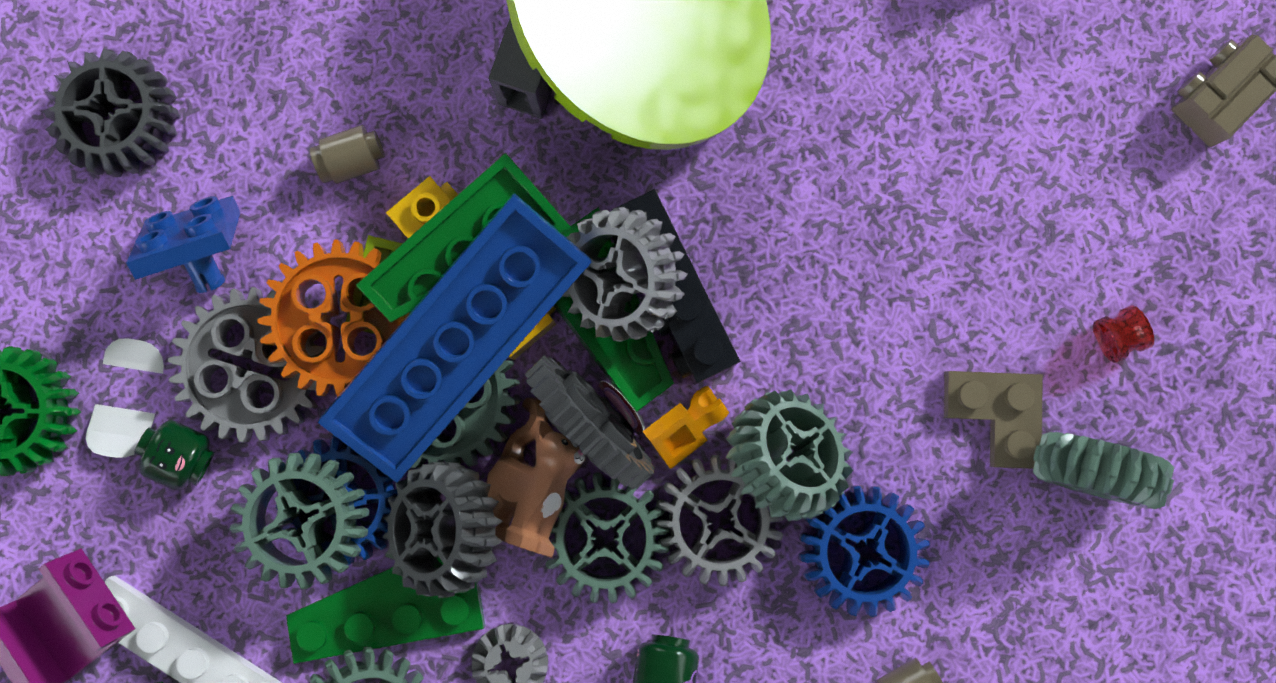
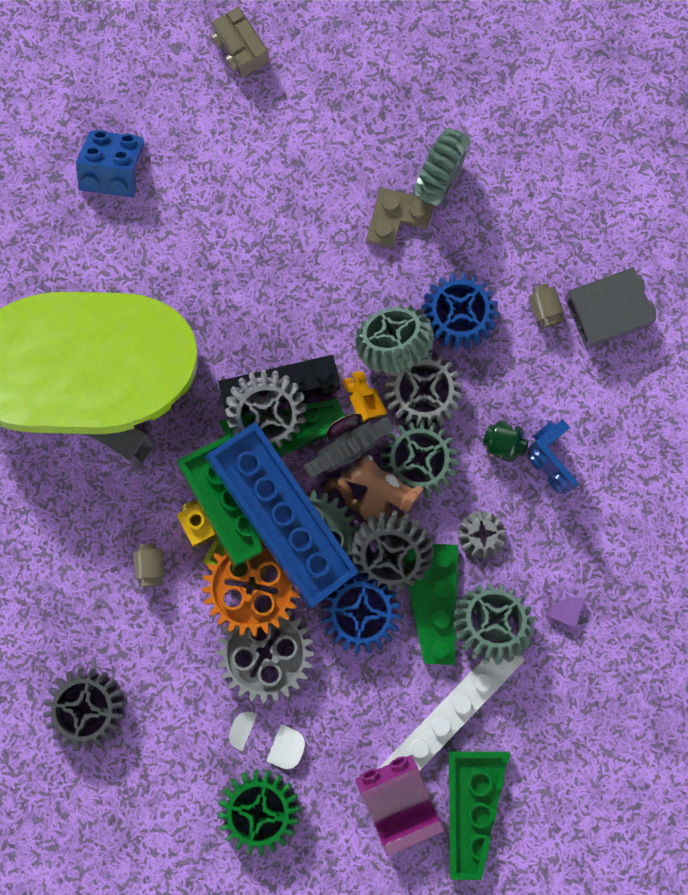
camera: 70 degrees left, 5 degrees down
(174, 455) = (310, 712): dark green head -> none
(187, 240) = (179, 673): blue plate -> none
(290, 503) = (394, 627): sand green gear -> none
(1123, 333) = (367, 136): clear red wheel -> none

